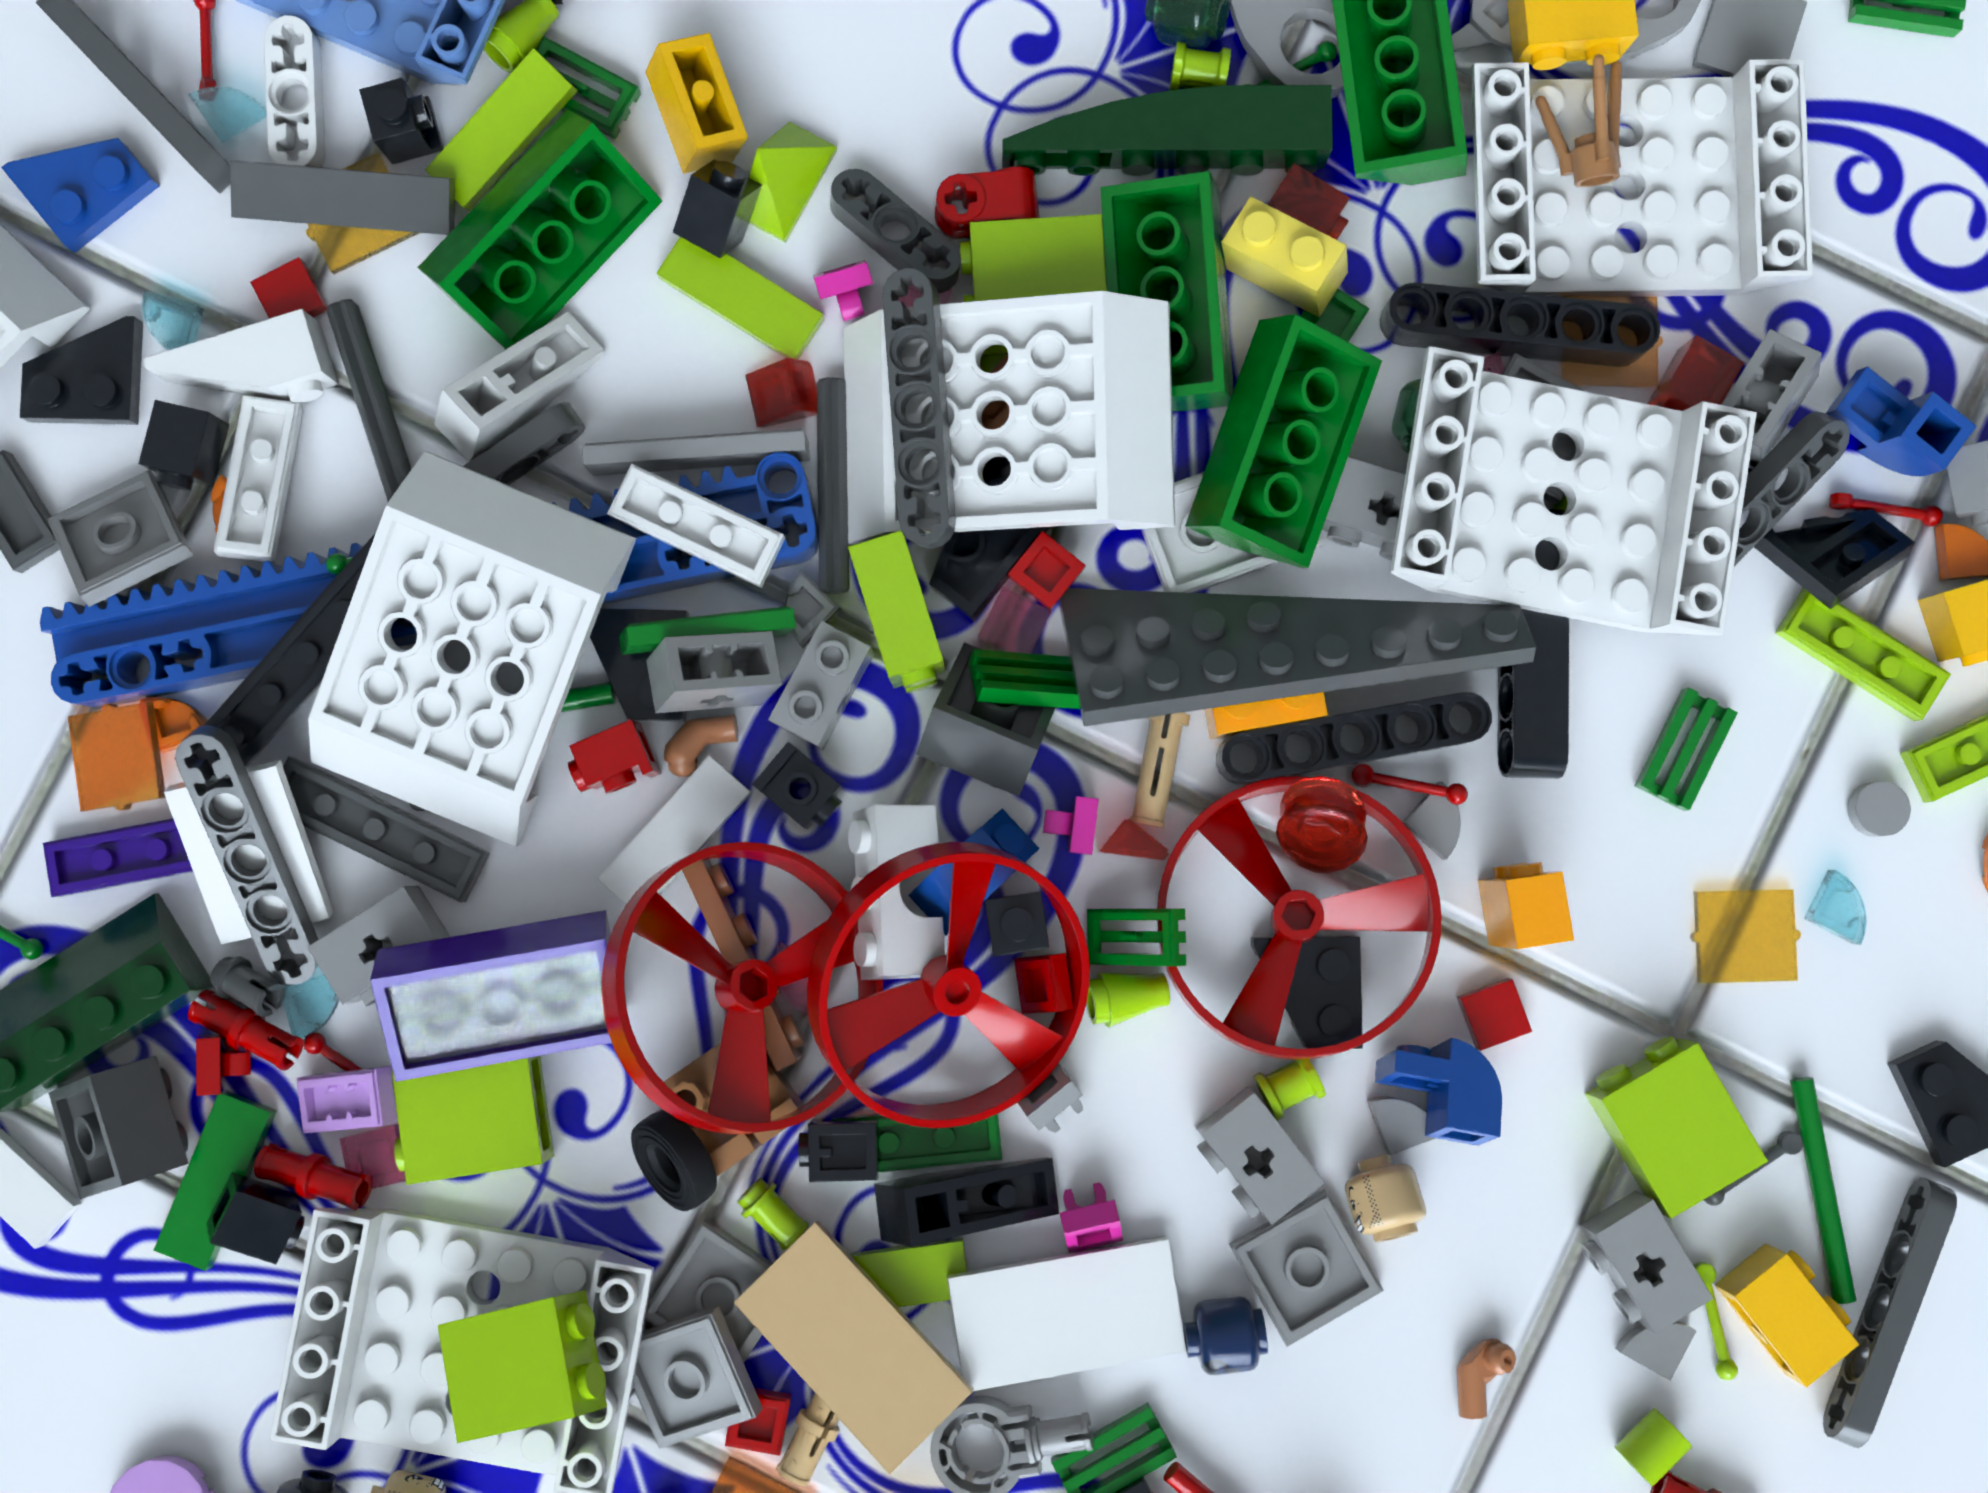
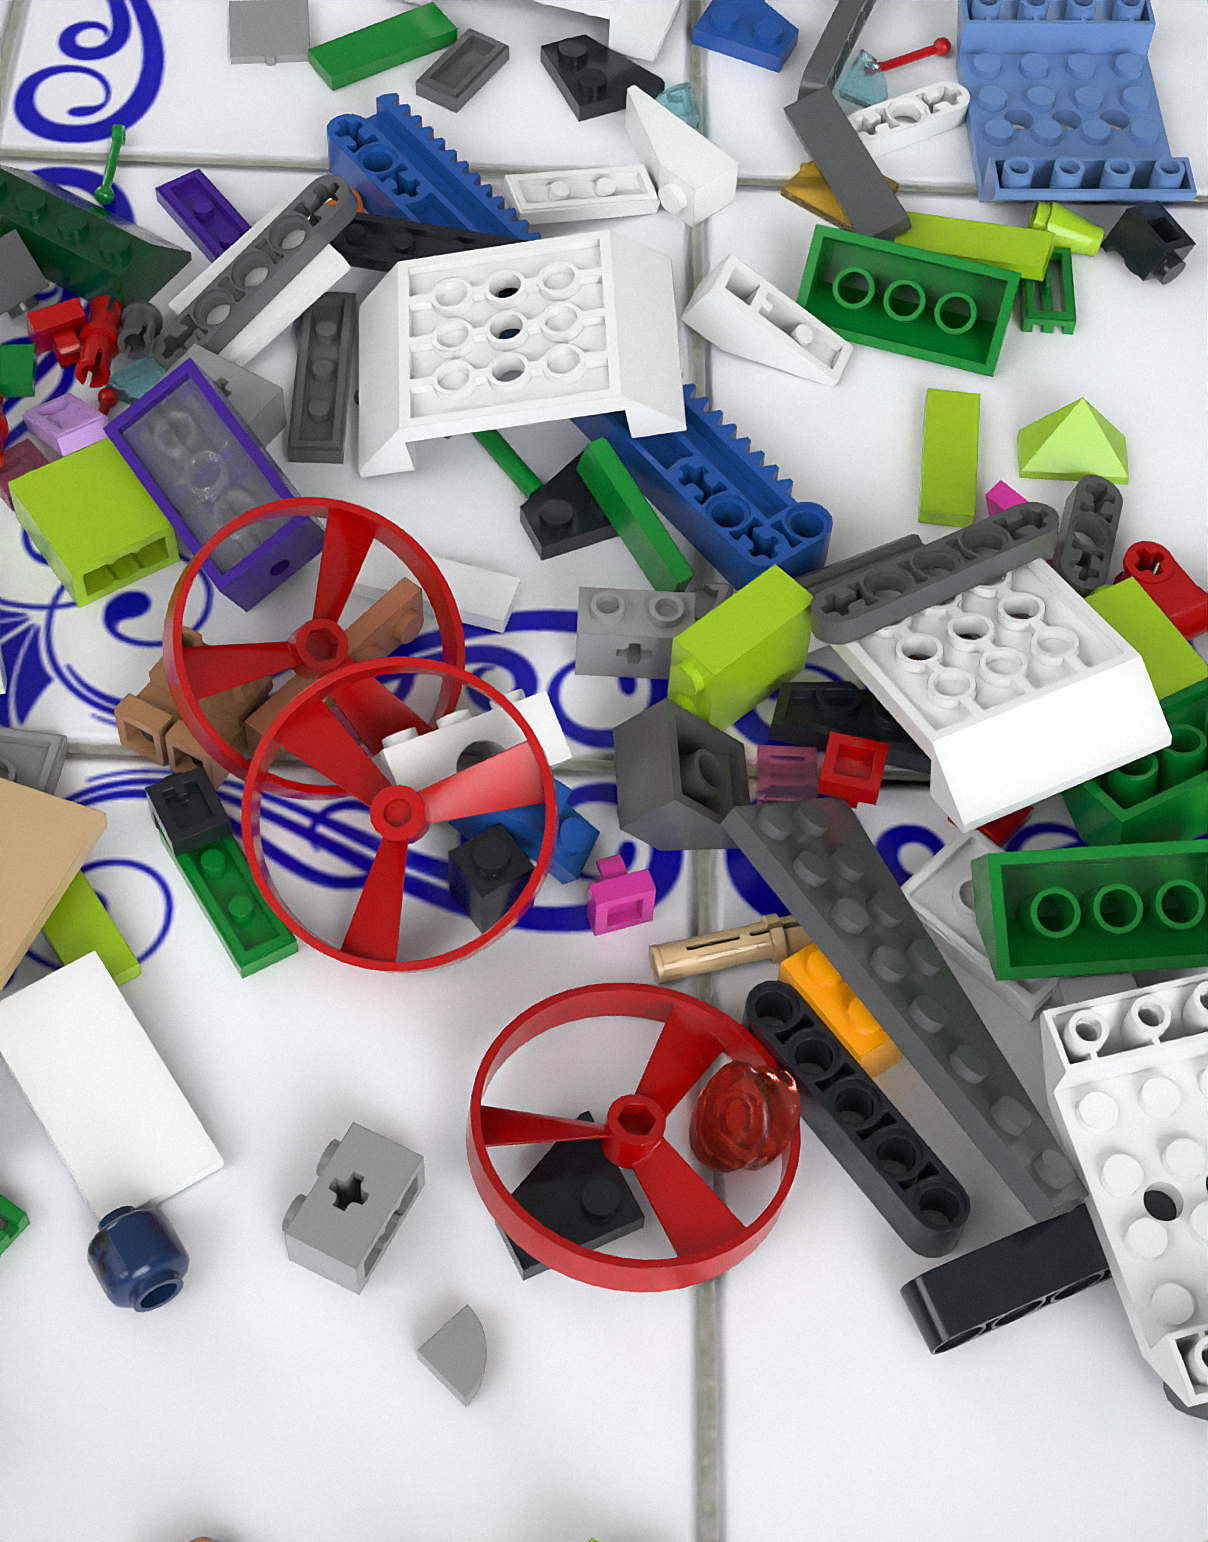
camera: 65 degrees right, 30 degrees down
(116, 756) = (286, 182): clear orange piece -> none
(119, 538) = (480, 124): light grey tile -> none
(183, 445) = (579, 137): black brick -> none
(289, 290) = (754, 168): red tile -> none
(369, 394) = (715, 231): dark grey axle -> none
(400, 121) = (933, 178): black brick -> none
(530, 444) = (746, 362): dark grey beam -> none
(612, 758) = (480, 506): red brick -> none
(673, 1160) = (117, 676): black tyre -> none
(691, 739) = (532, 563): nougat arm -> none
(693, 451) = (768, 433): light grey tile -> none
(695, 102) = (1090, 351): yellow brick -> none
(696, 525) = (724, 474): white tile -> none
(713, 671) = (599, 531): light grey brick -> none
(717, 207) = (1013, 399): black brick -> none
(772, 1213) = (103, 778): lime pin -> none
(782, 392) = (886, 517): clear red slope -> none
(786, 768) = (530, 650): black brick -> none
(965, 1201) = (185, 948): black slope -> none
(1023, 679) = (730, 772): green tile -> none
(1043, 983) = (441, 929): red tile -> none
(1051, 1099) = (330, 977): light grey tile -> none
(1092, 1224) = (208, 1071): dark pink tile -> none
(1124, 996) = (463, 1009): lime cone -> none
(1133, 842) = (625, 945): clear red slope -> none
(1168, 936) = (521, 987): green tile -> none
(1289, 1086) = (445, 1209): lime bush -> none
(1306, 1267) = (249, 1322): light grey tile -> none
(1364, 776) = (819, 1158): red hinge -> none
(1385, 1199) = (363, 1361): tan head -> none
(1436, 824) = (813, 1248): light grey tile -> none
(1460, 1085) = (530, 1377): blue brick -> none
(1494, 1014) = (631, 1403): red tile -> none
(1525, 907) = (767, 1351): light orange brick -> none
(1707, 708) = (1045, 1462): green tile -> none

